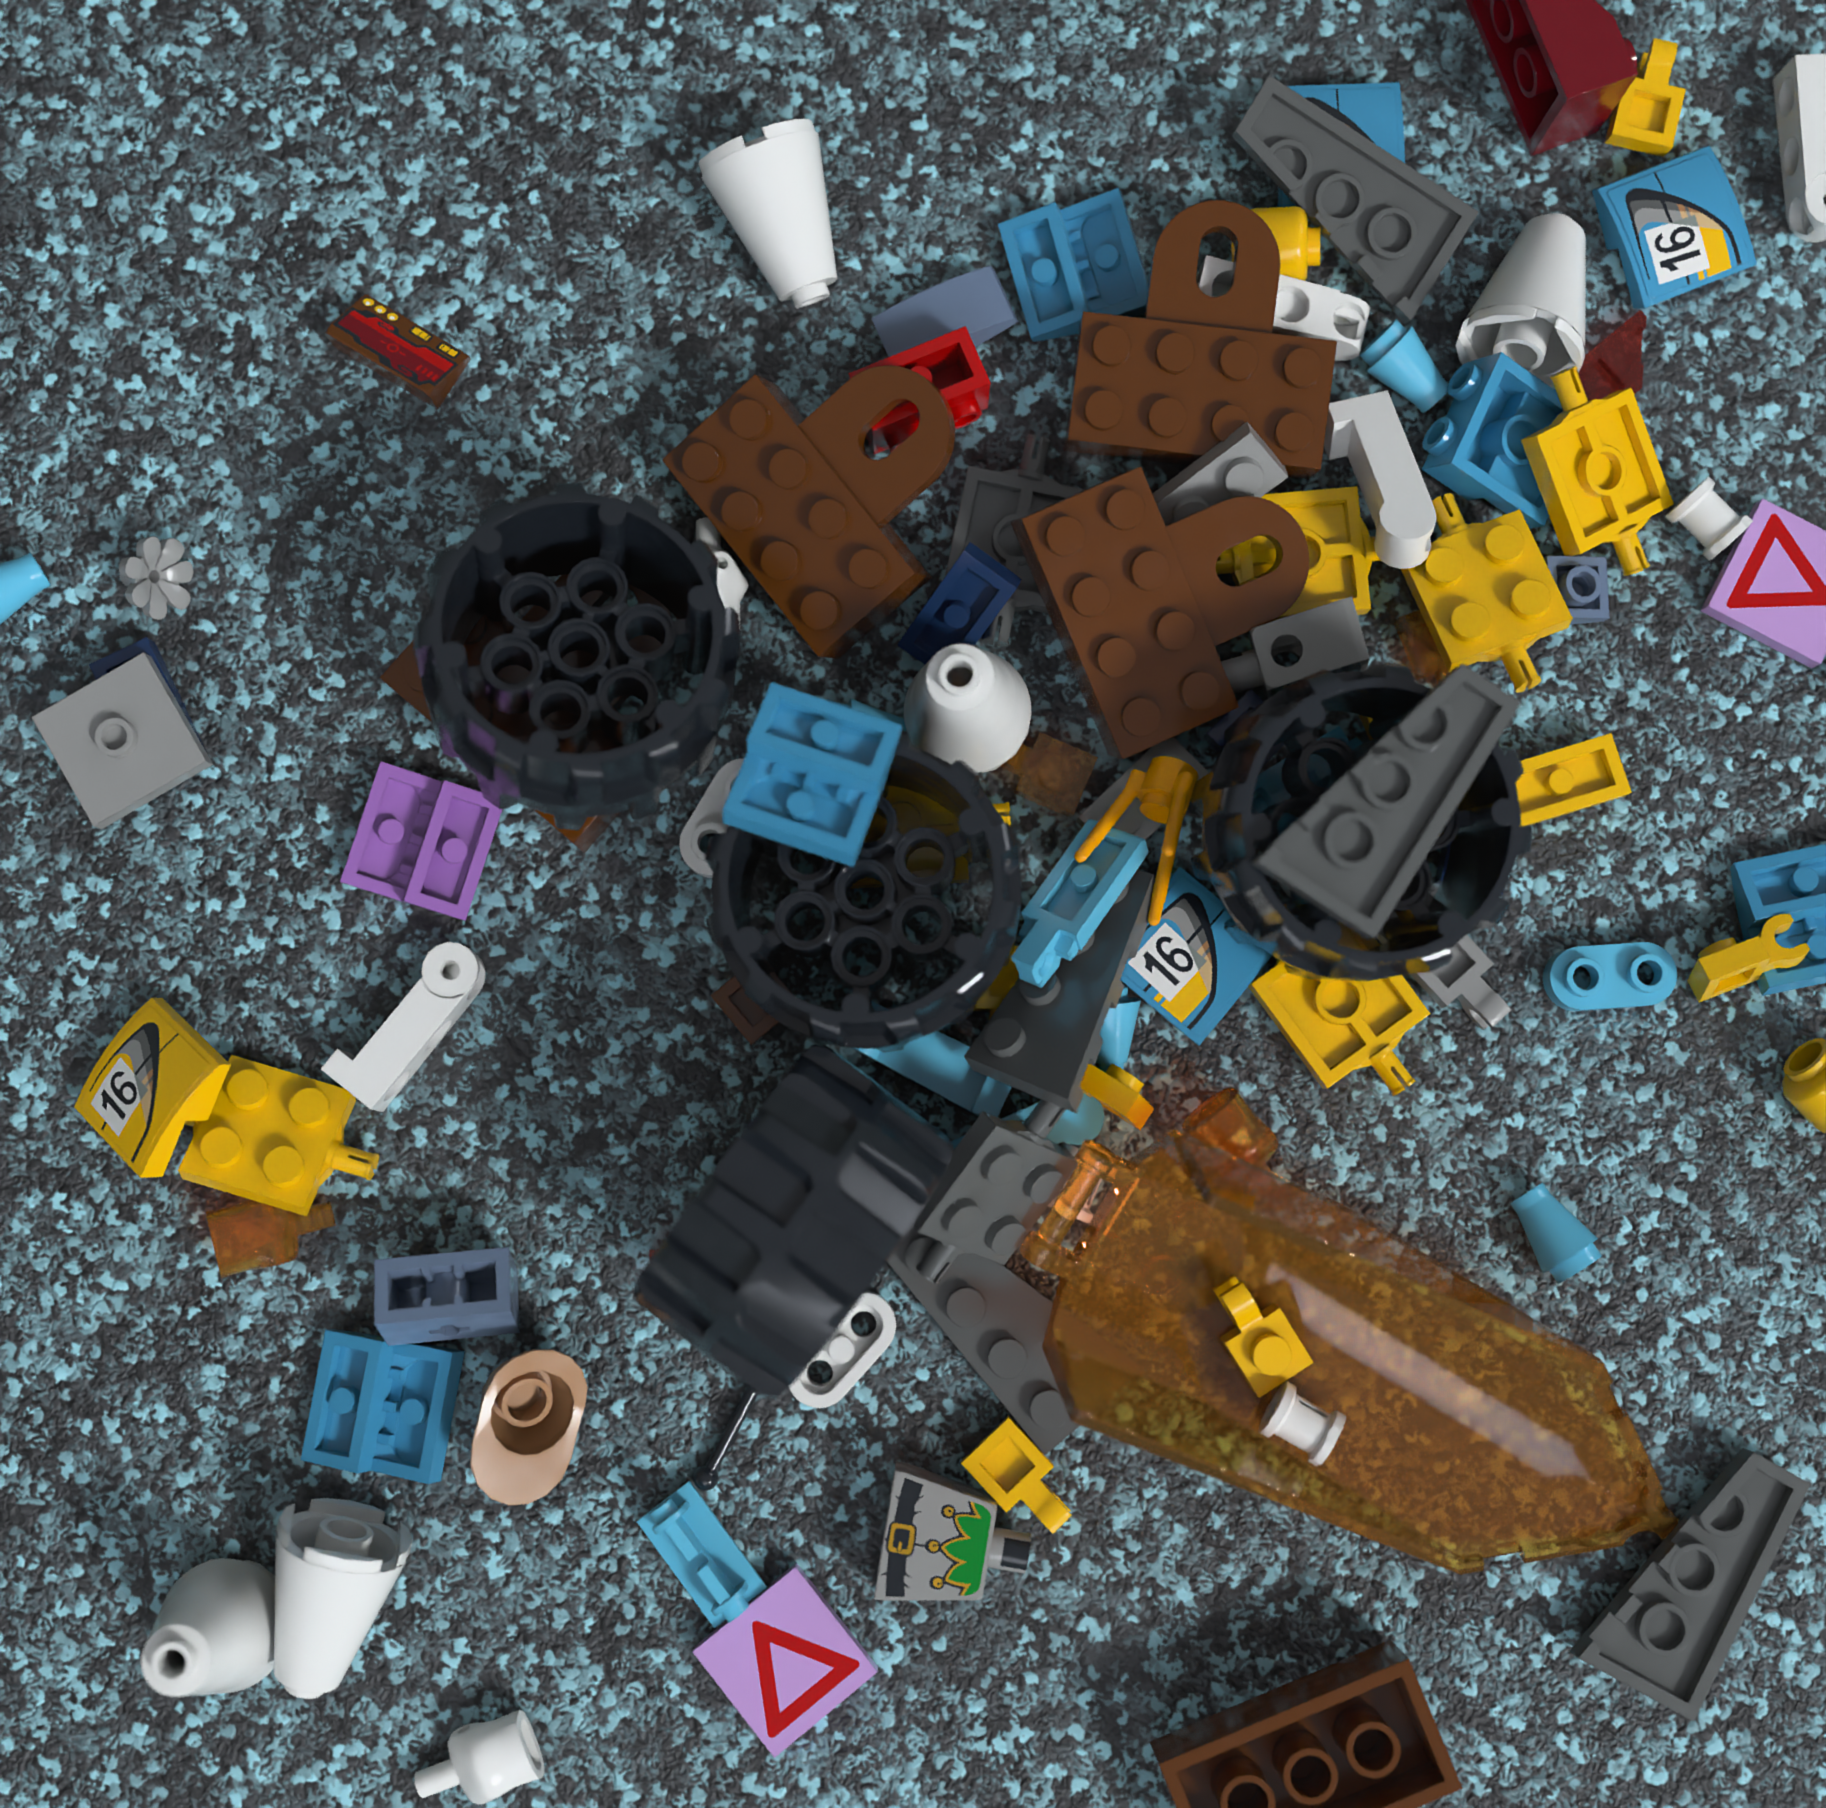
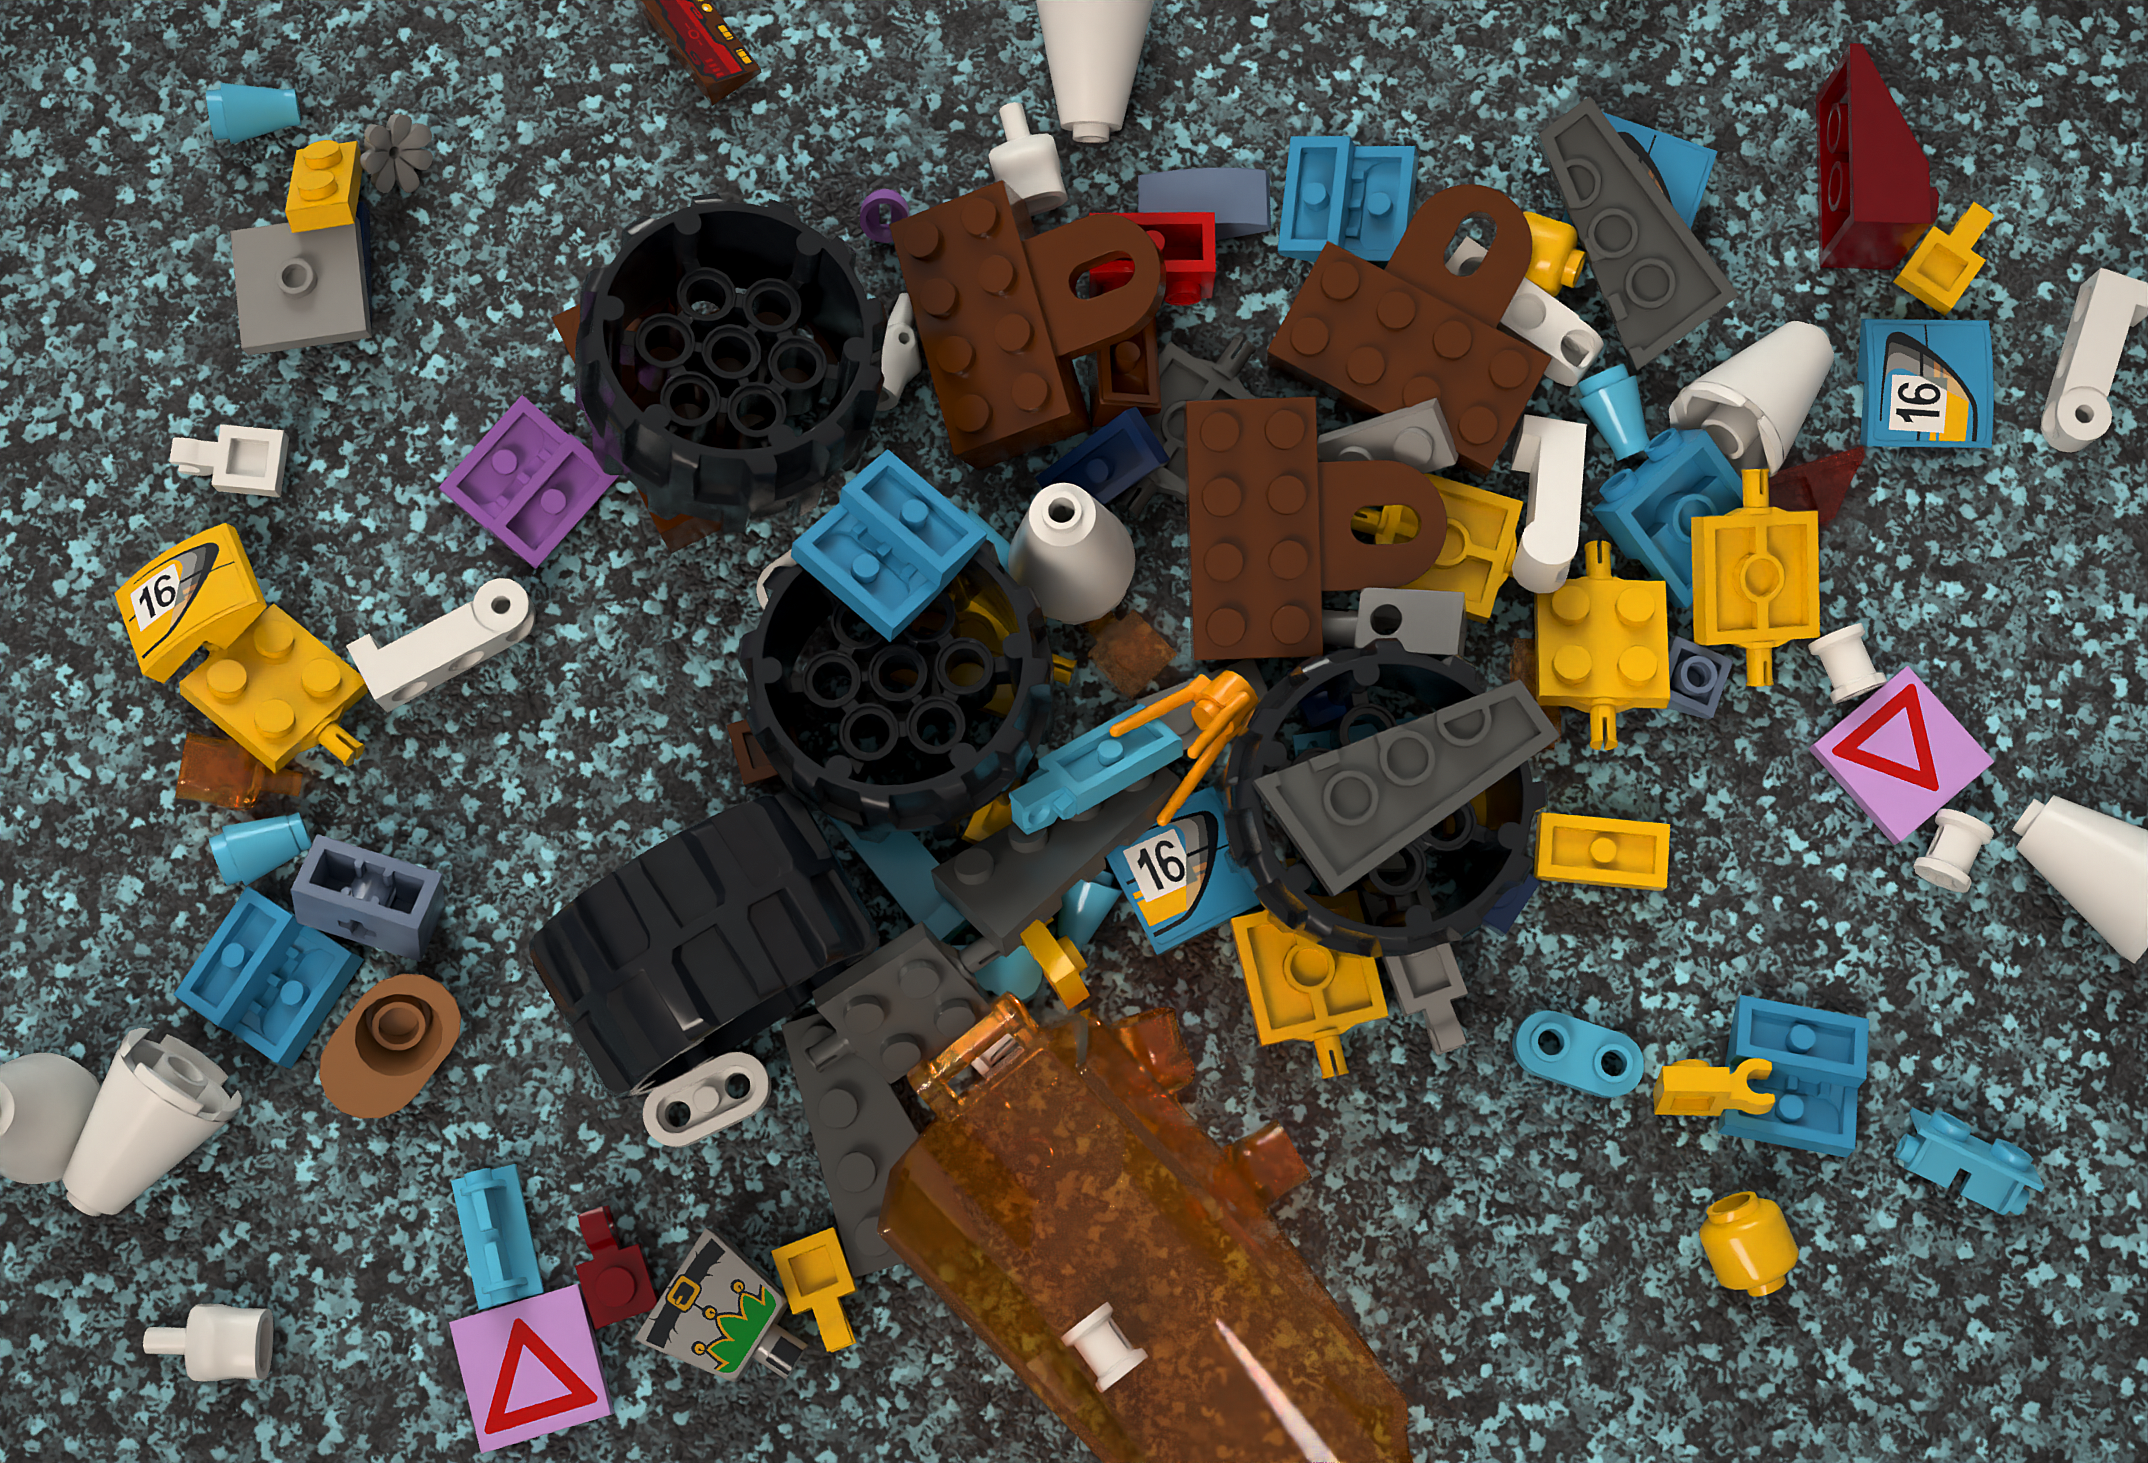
camera: 25 degrees right, 5 degrees down
(102, 637) = (324, 186): none -> yellow plate
(139, 932) = (241, 461): none -> white plate
(320, 1289) = (258, 846): none -> medium azure cone
(634, 455) = (871, 213): none -> medium lavender hinge
(706, 1476) = (533, 1166): black hinge -> none
(761, 346) = (1028, 163): none -> white piece
(827, 1545) = (617, 1279): none -> dark red plate
(943, 521) = (1125, 377): none -> reddish brown slope
(1262, 1340) = (1100, 1258): yellow plate -> none
(1375, 1190) = (1268, 1162): none -> clear orange piece
(1555, 1234) = (1422, 1273): medium azure cone -> none

